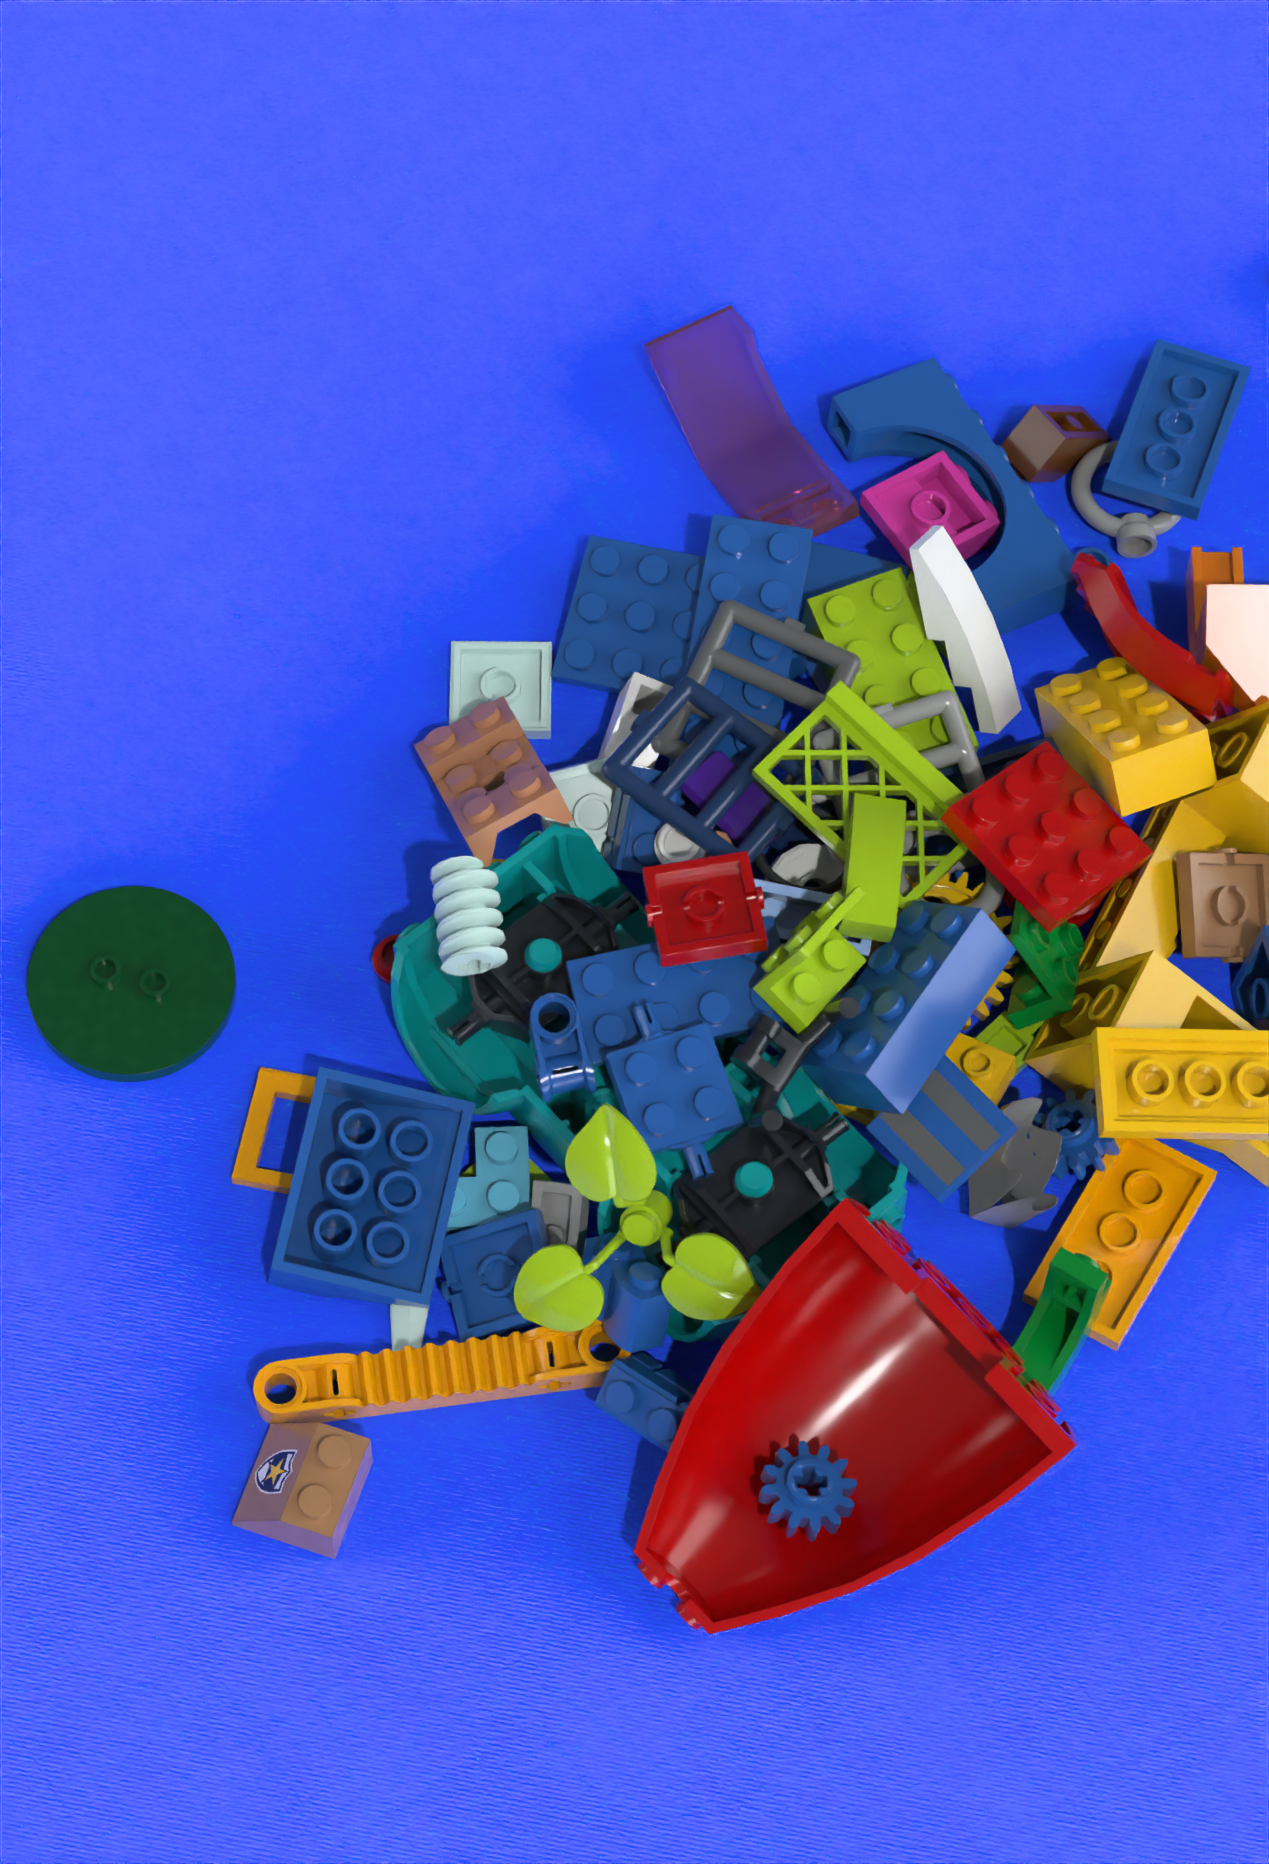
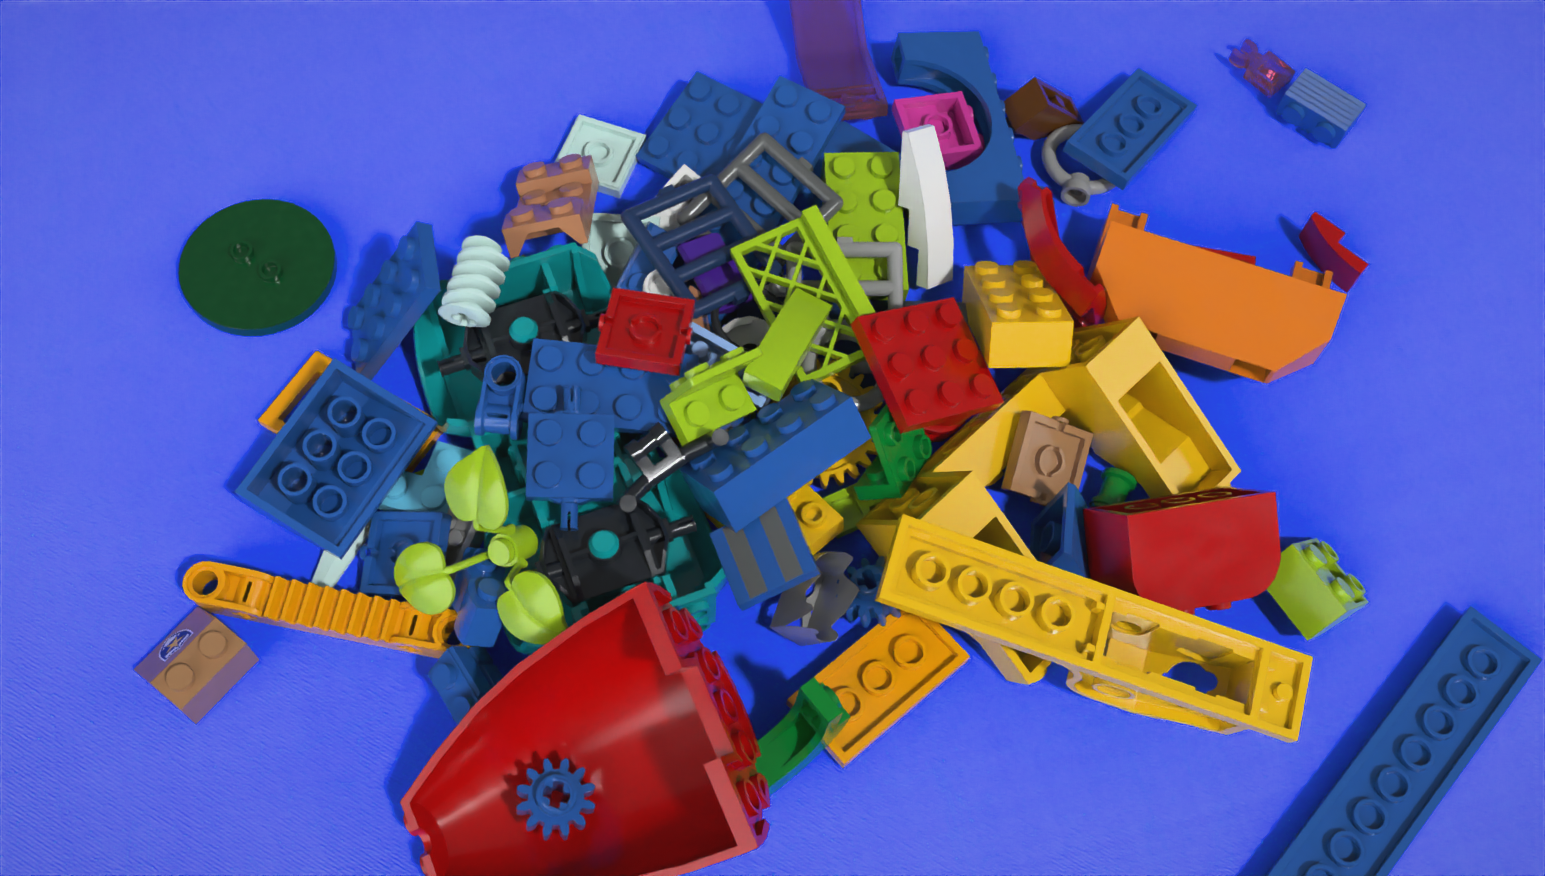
camera: 15 degrees right, 0 degrees up
(358, 970) = (394, 300): none -> blue plate

